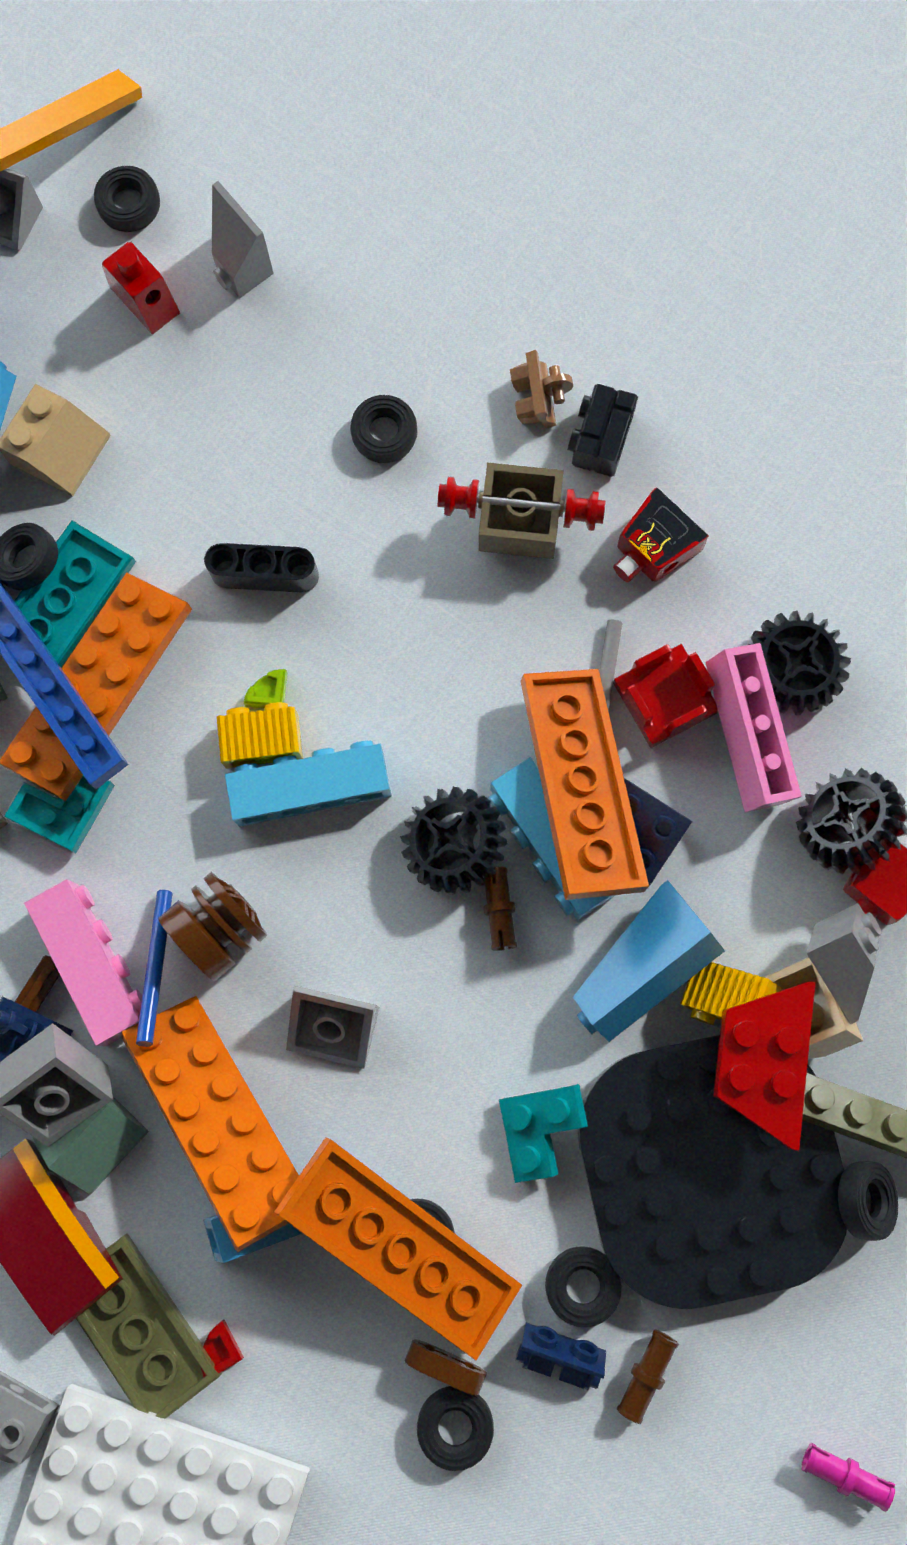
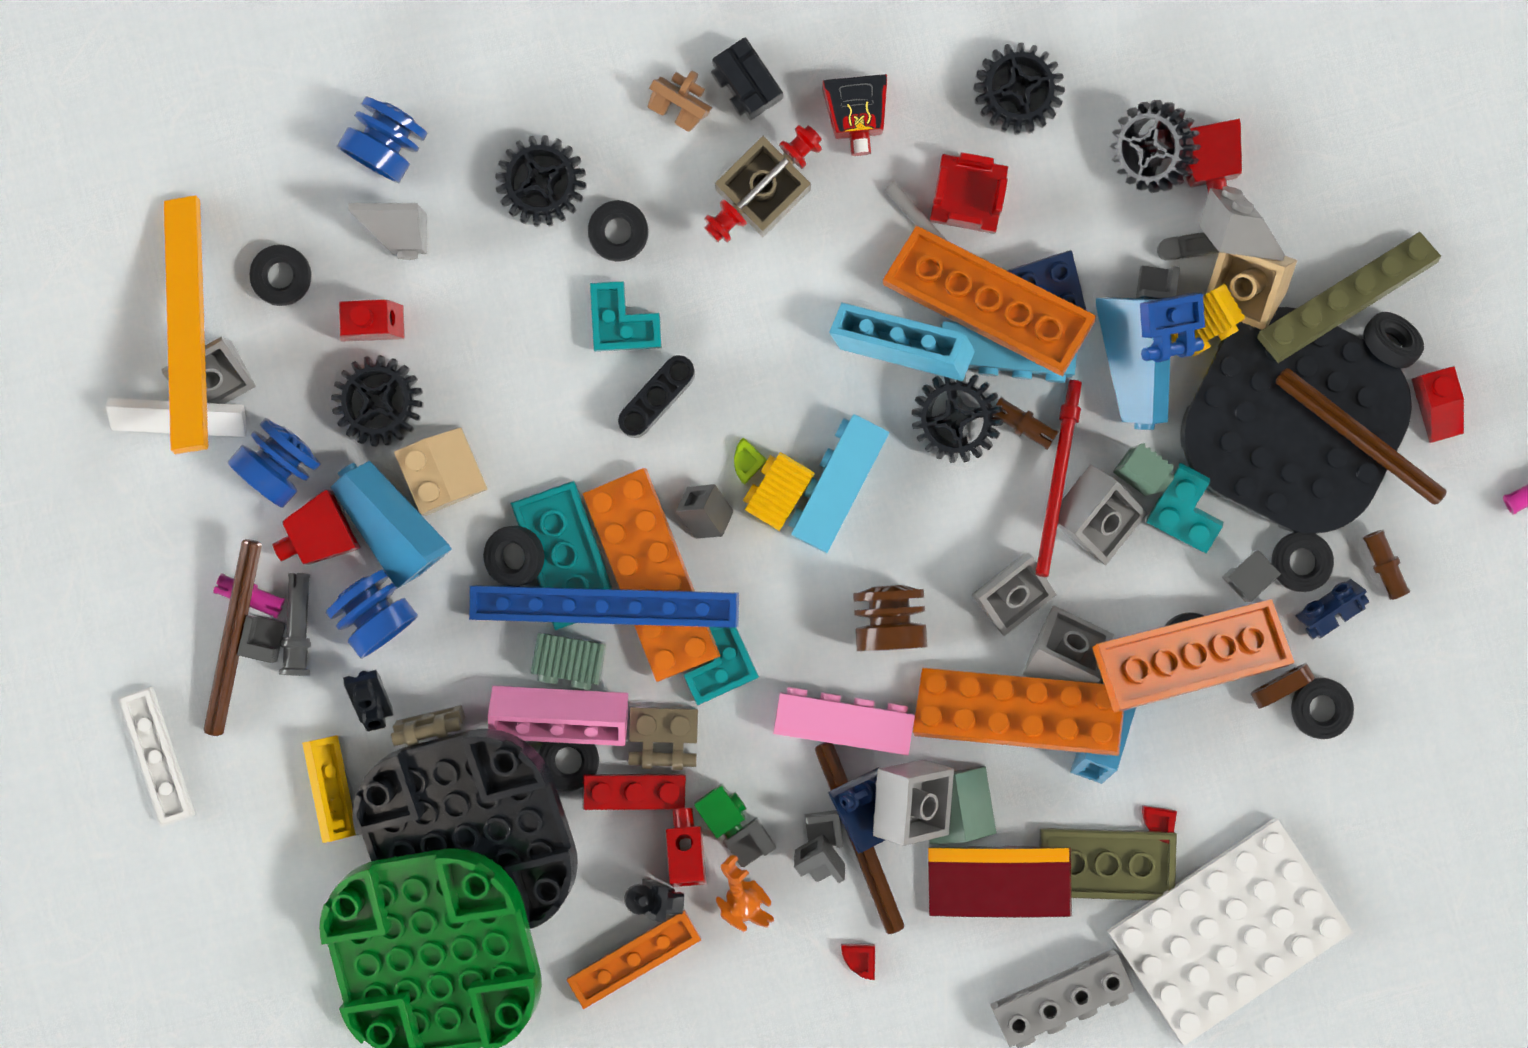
camera: 55 degrees left, 10 degrees up
(87, 357) = (388, 389): none -> black gear
(154, 970) = (885, 679): blue bar -> none
(191, 687) = (704, 511): none -> dark grey panel
(296, 487) = (615, 329): none -> teal plate
(301, 180) = (382, 139): none -> blue wheel
(313, 1111) = (1065, 649): none -> light grey slope
(365, 315) = (554, 173): none -> black gear
(468, 1046) = (1099, 514): none -> light grey slope
(480, 733) = (902, 341): none -> medium azure brick
(528, 1246) = (1251, 576): none -> dark grey panel
(539, 945) = (1069, 416): none -> red bar
(544, 1055) = (1144, 470): none -> sand green brick
(706, 955) = (1171, 316): none -> blue plate
(730, 927) = (1157, 282): none -> dark grey panel
(749, 1249) = (1361, 436): none -> reddish brown axle
(753, 728) = (1042, 157): bright pink brick -> none
(766, 1060) = (1262, 332): red wing -> none
(784, 928) = (1185, 247): none -> dark grey piece
(848, 1300) = (1440, 403): none -> red slope

